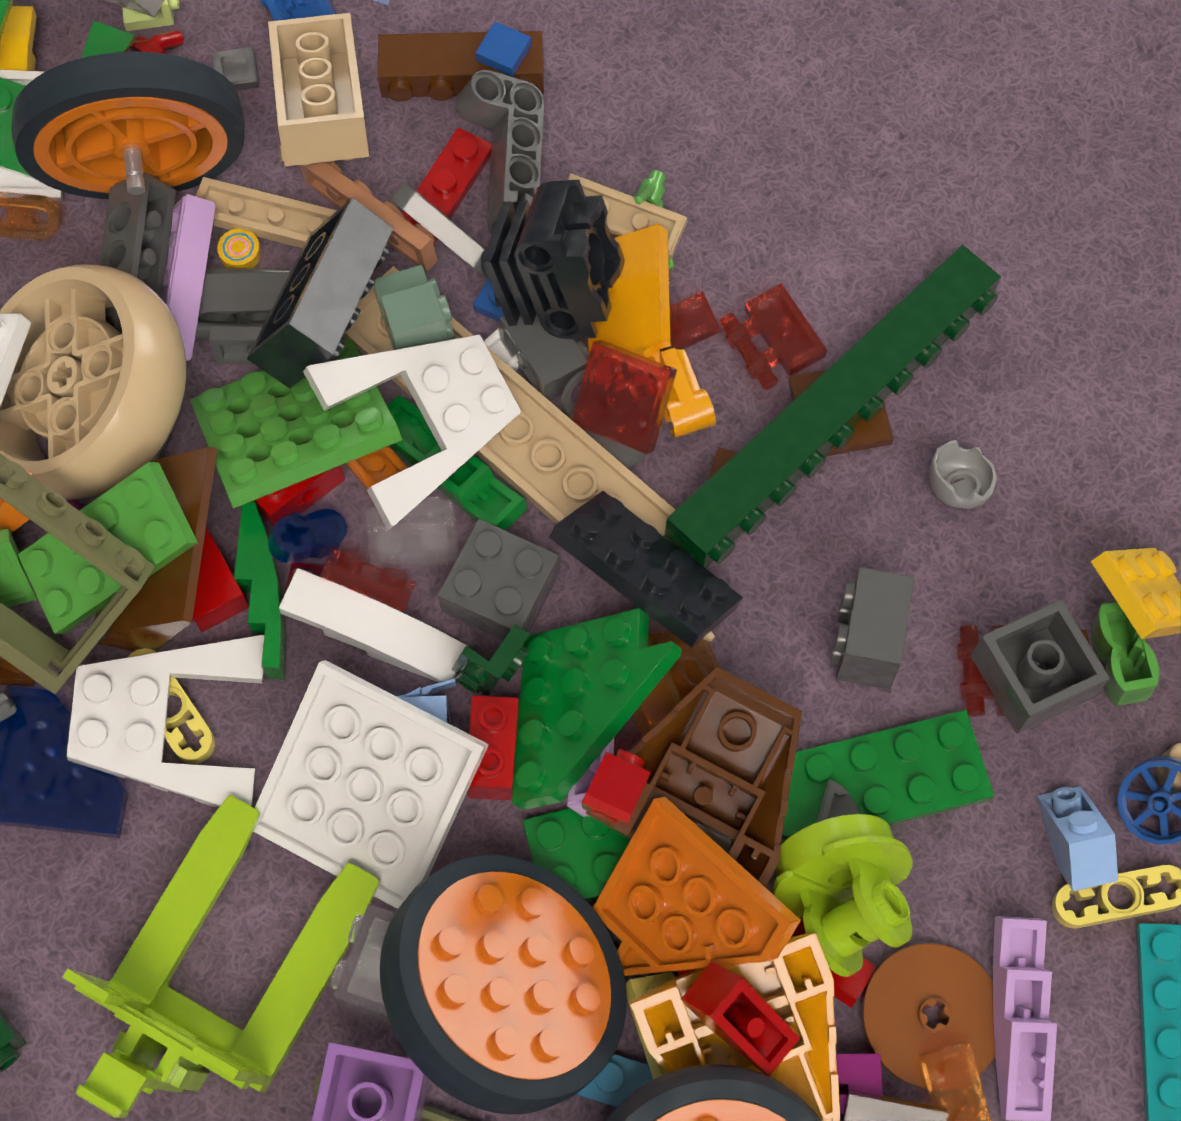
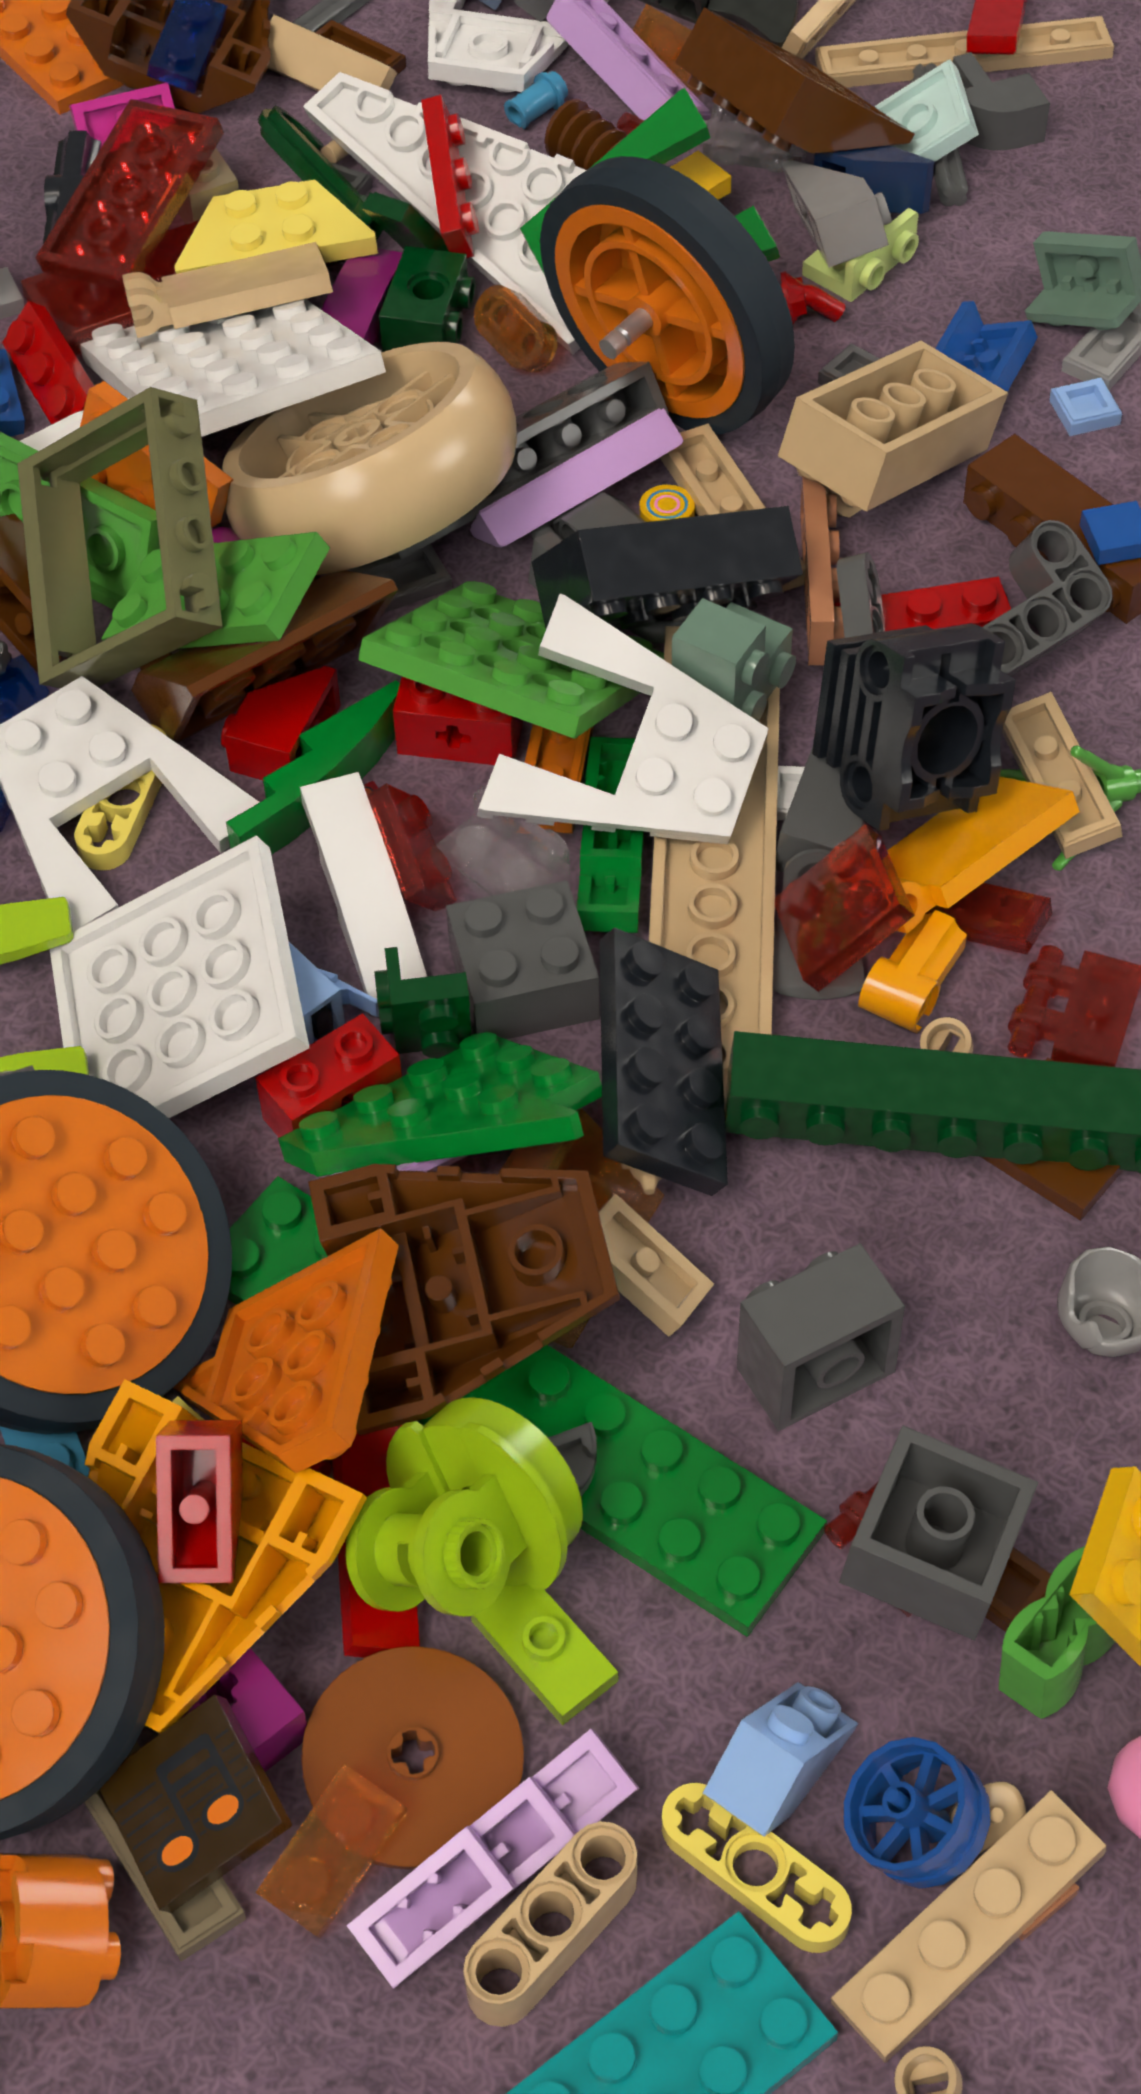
camera: 50 degrees right, 15 degrees down
(307, 535) = (403, 758): clear blue piece -> none
(616, 787) = (344, 1166): red slope -> none
(749, 414) = (939, 1033): none -> tan hinge
(763, 670) = (650, 1268): none -> tan plate
(937, 902) = (546, 1650): none -> lime plate
(1074, 1041) = (560, 1889): none -> tan beam

